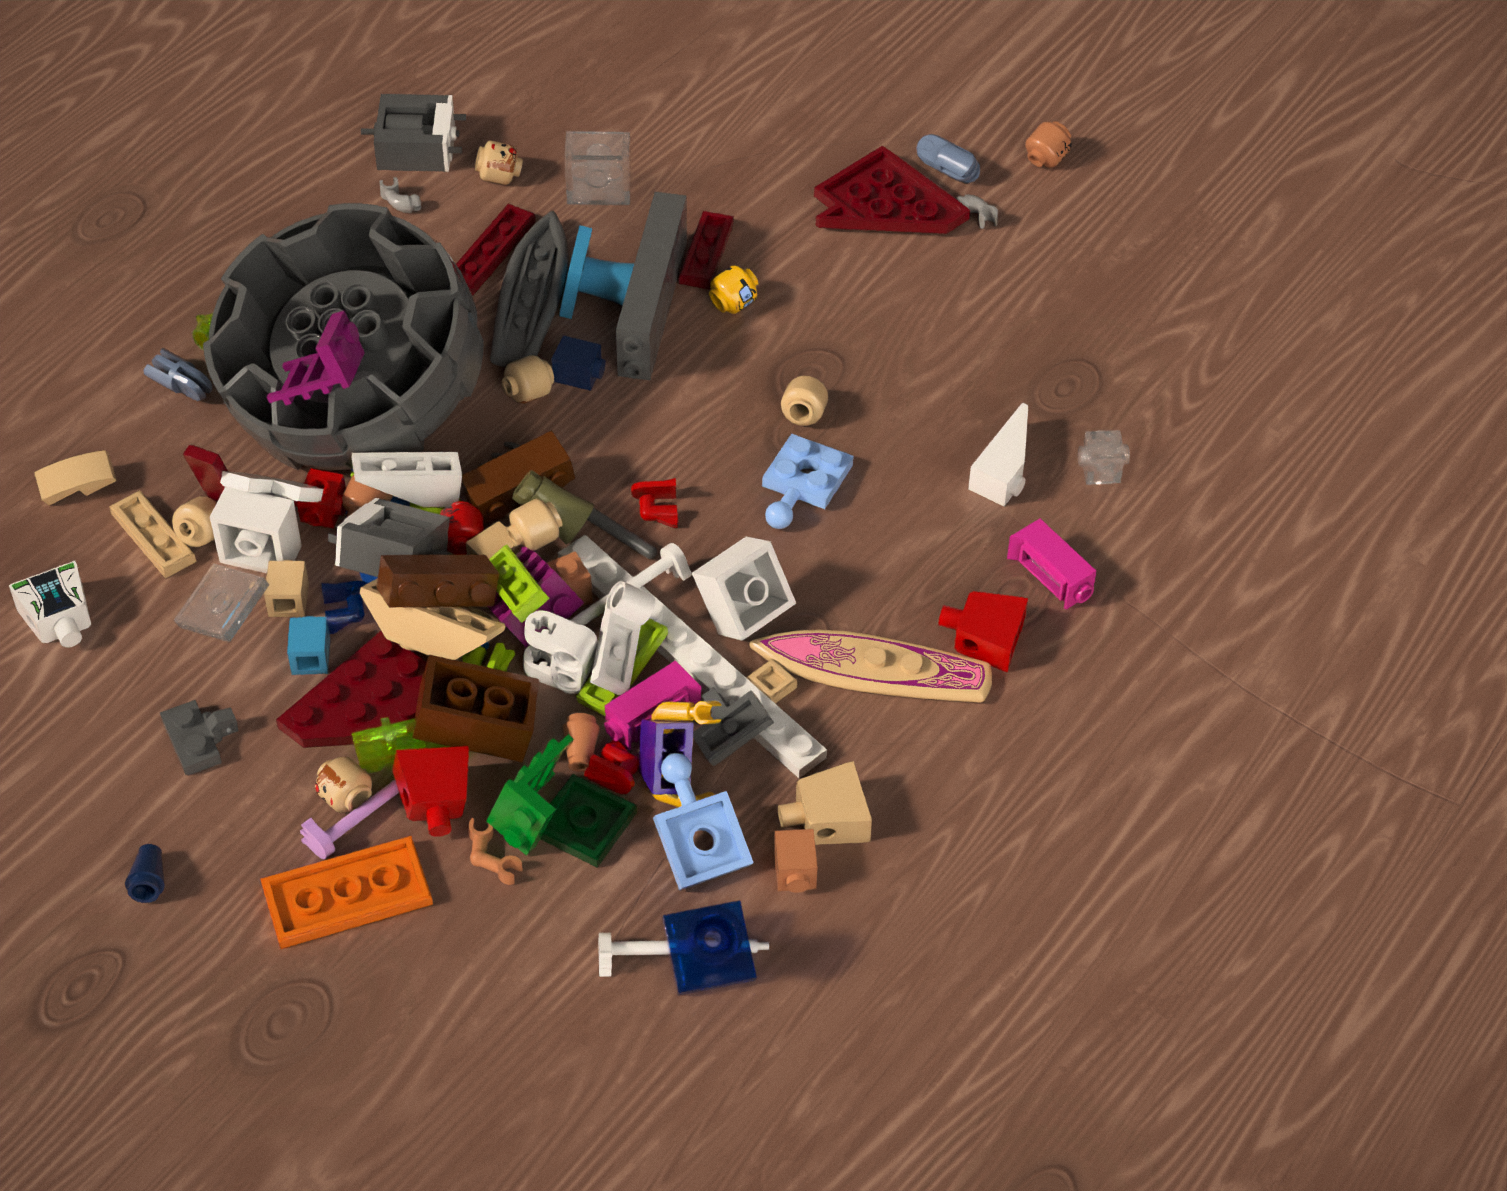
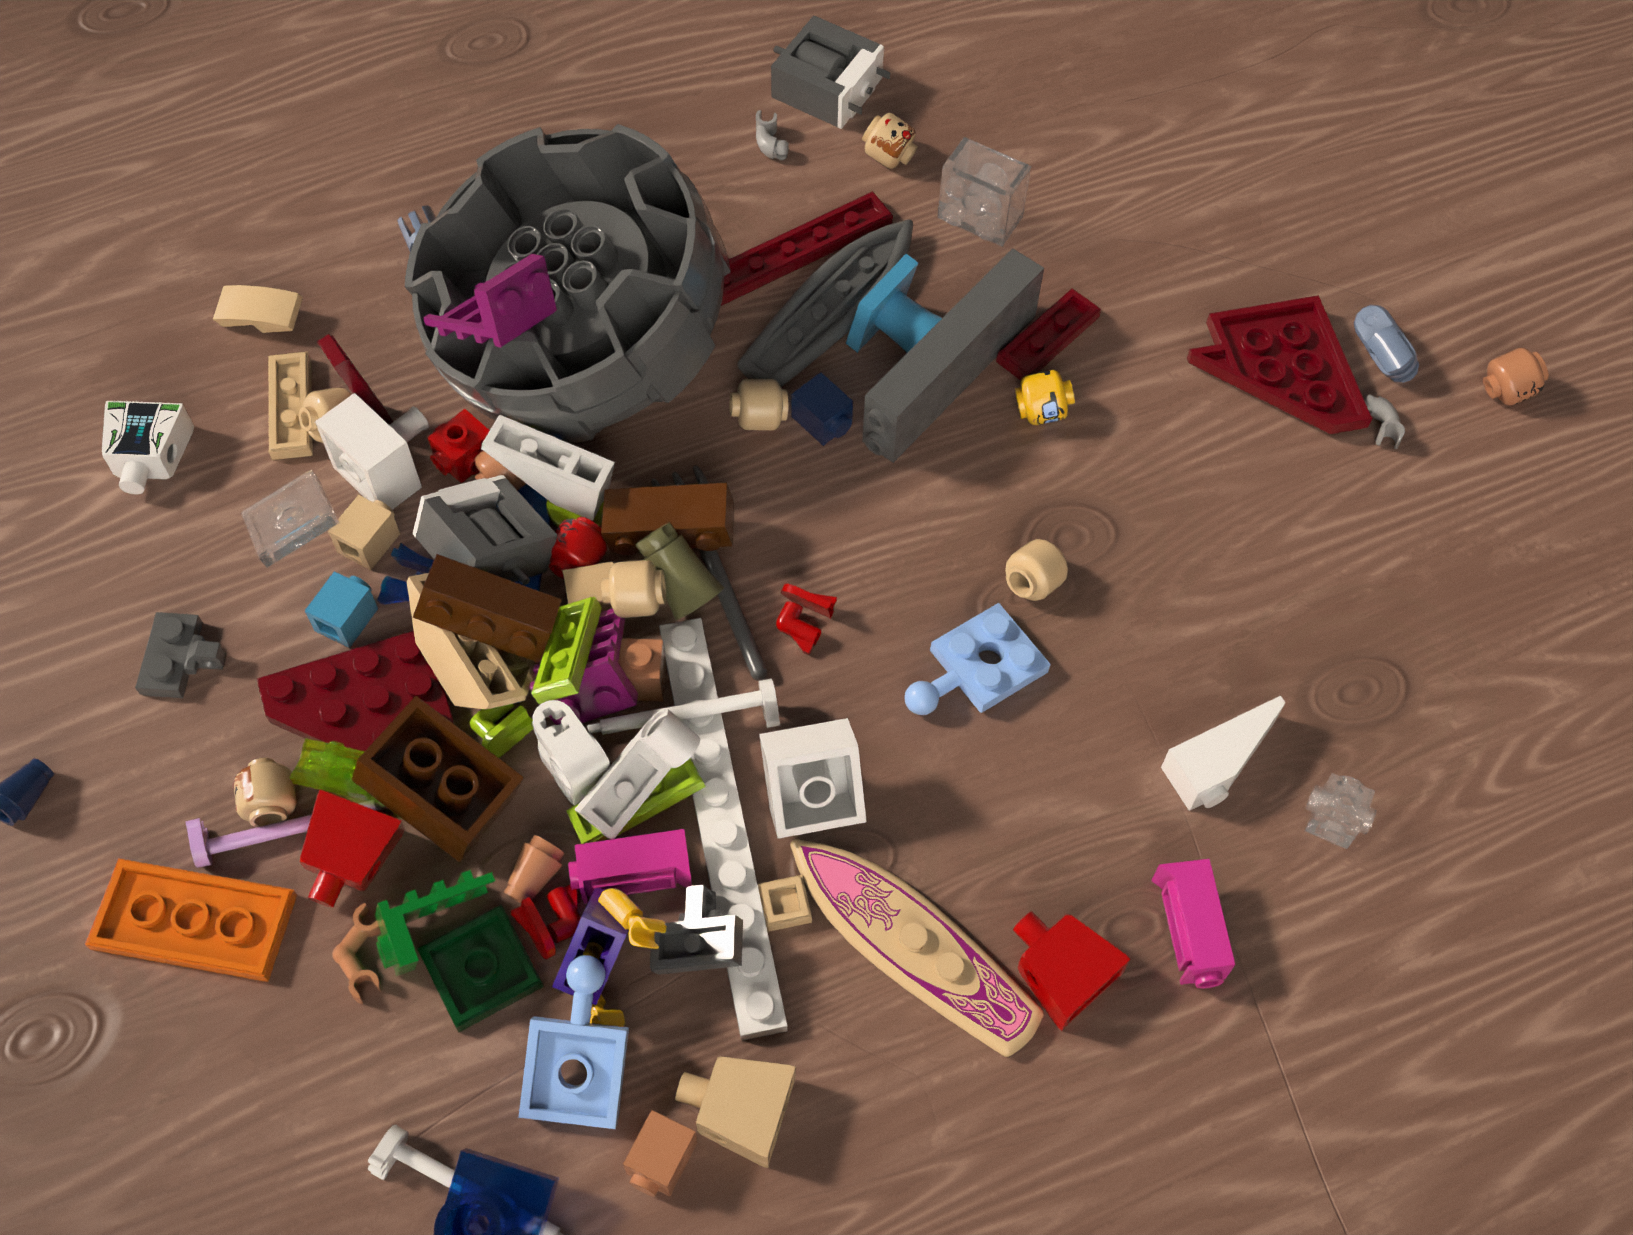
camera: 30 degrees right, 10 degrees up
(263, 484) = (416, 424): white tile -> none

